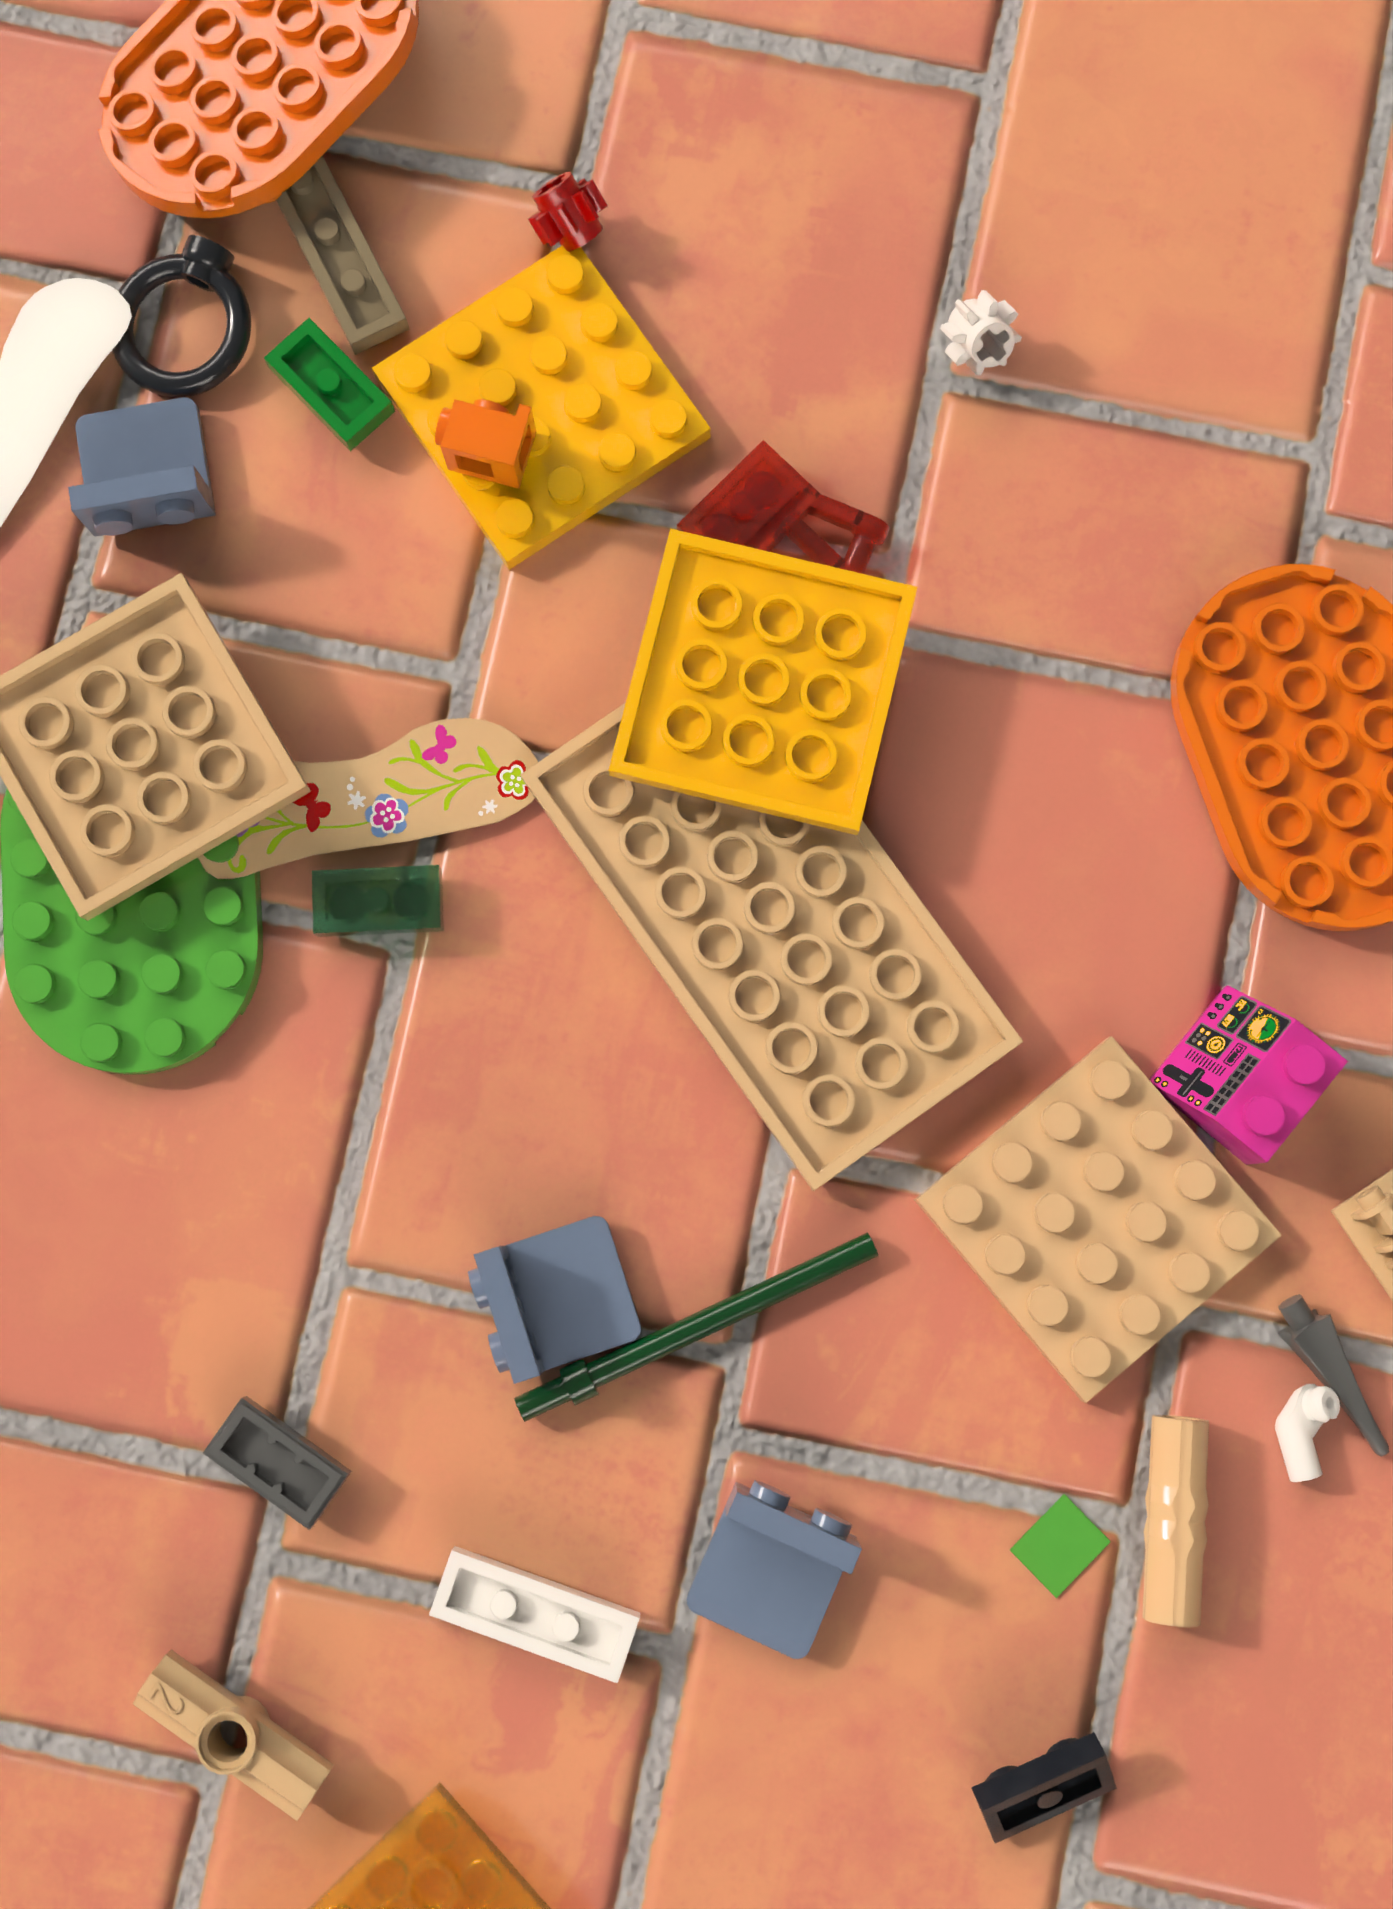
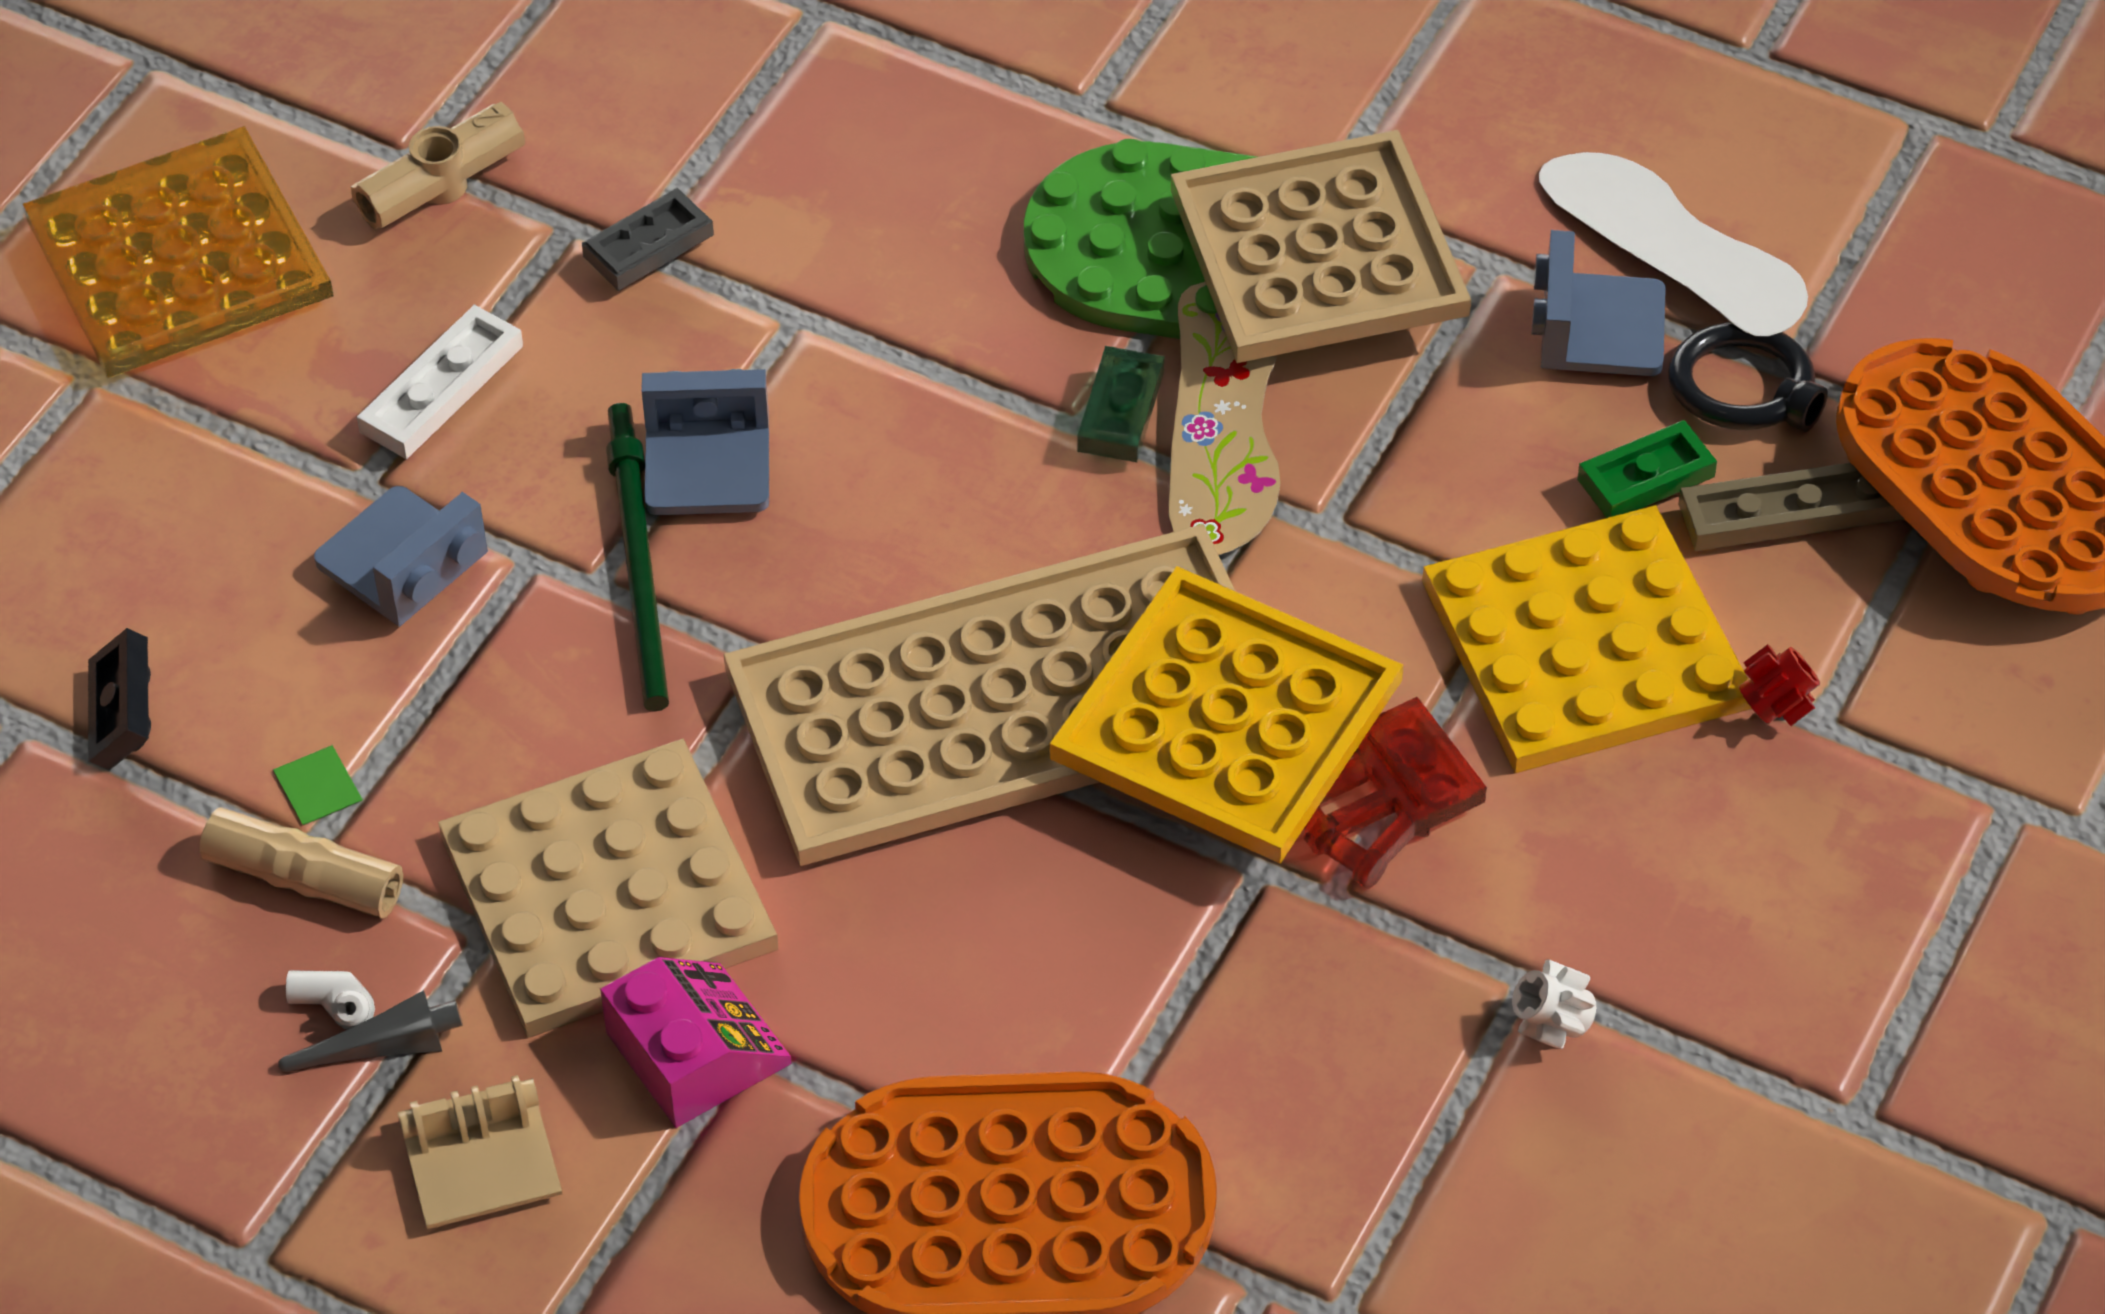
camera: 105 degrees right, 30 degrees down
(486, 440) = (1537, 550): orange brick -> none

